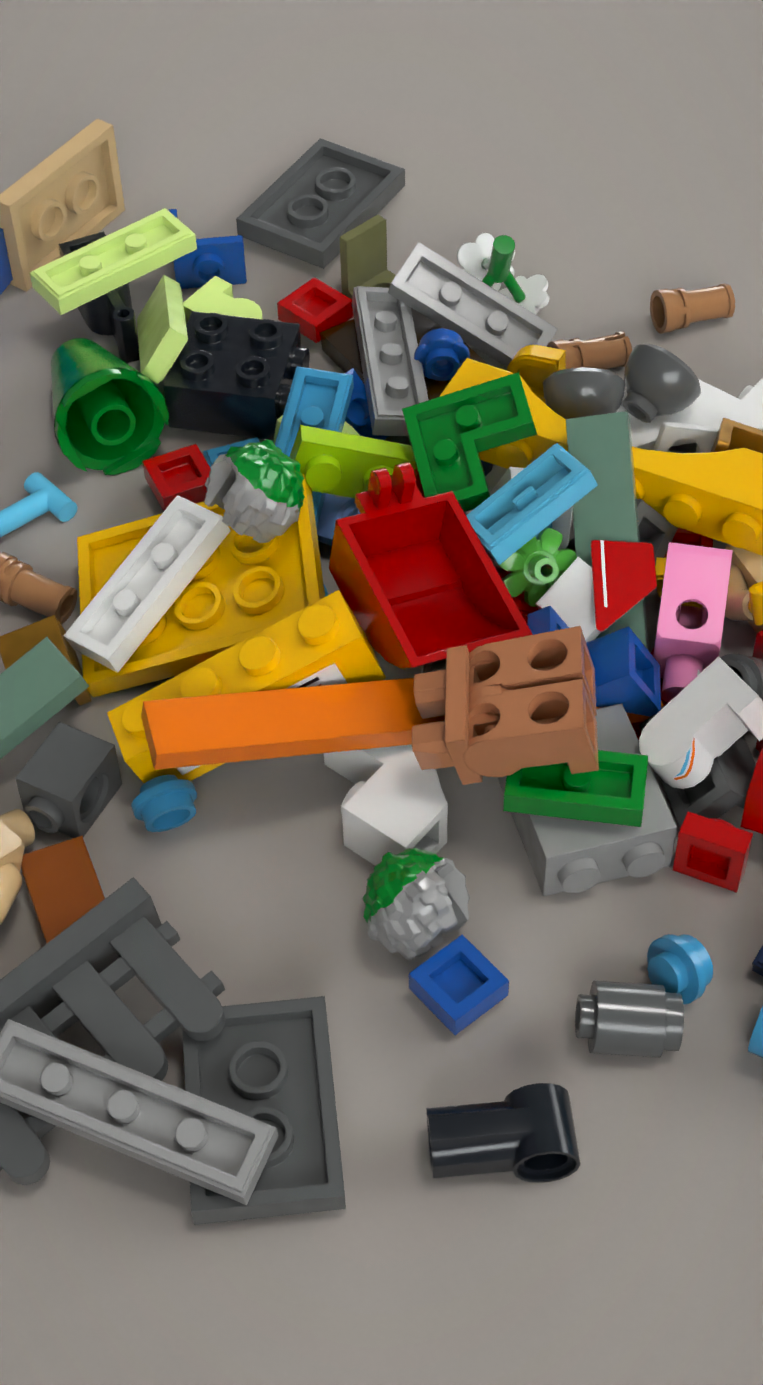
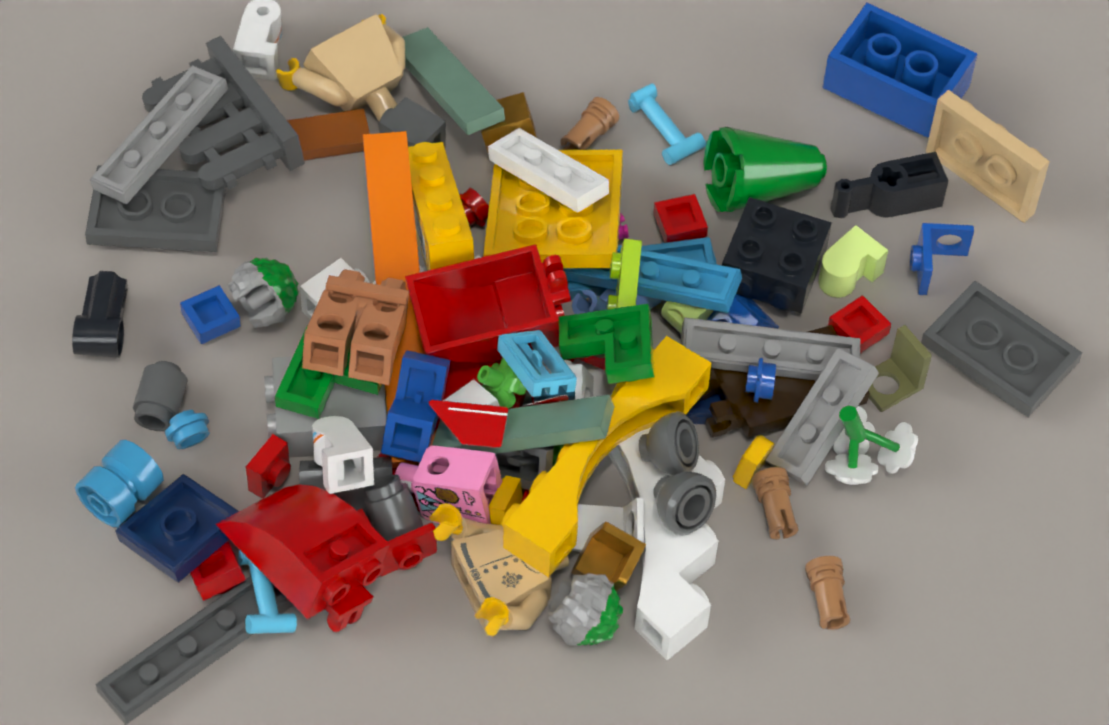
camera: 95 degrees right, 5 degrees up
(113, 261) = (901, 180): yellowish green tile -> none
(161, 330) = (823, 207): yellowish green tile -> none
(256, 489) = (584, 212): piece -> none

